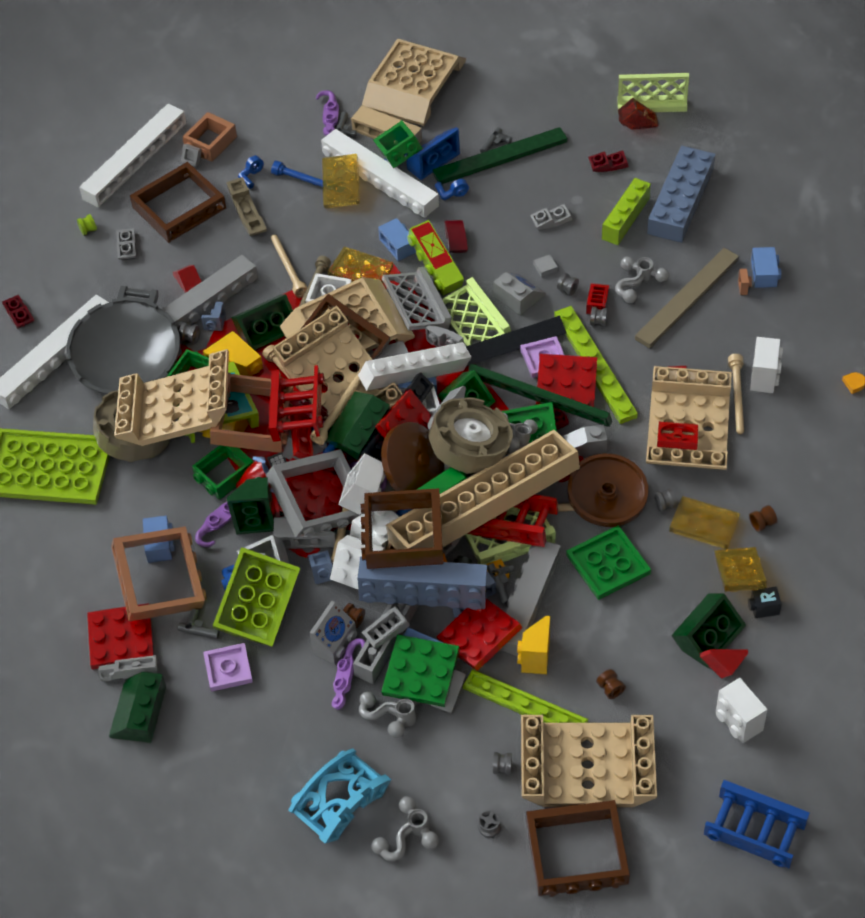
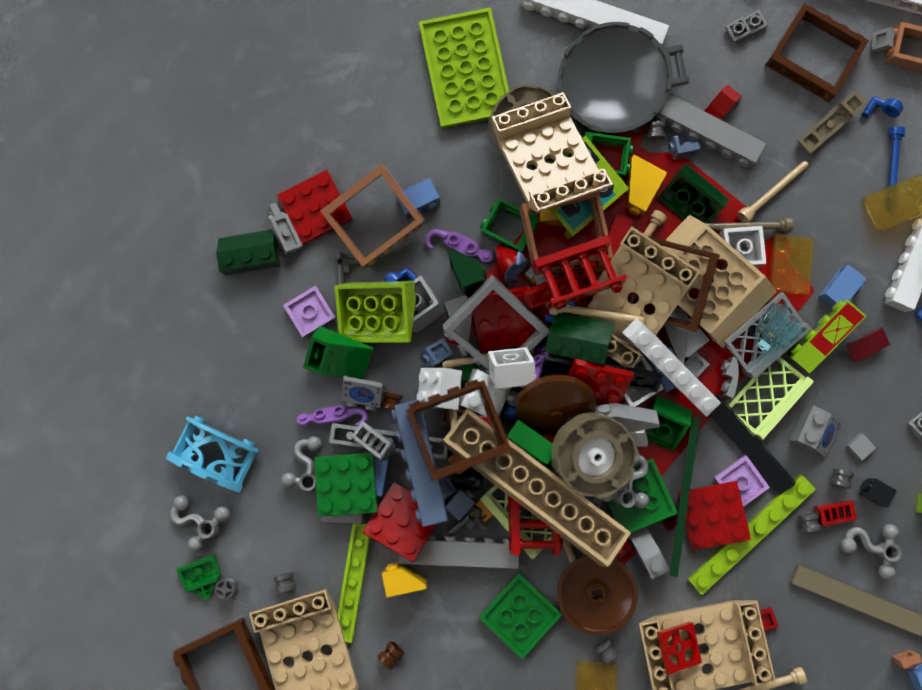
camera: 70 degrees right, 30 degrees up
(283, 647) = (336, 355): none -> green slope
(412, 285) = (778, 328): none -> clear light blue torso
(467, 849) = (200, 576): none -> green slope
(589, 263) = (877, 492): none -> black brick

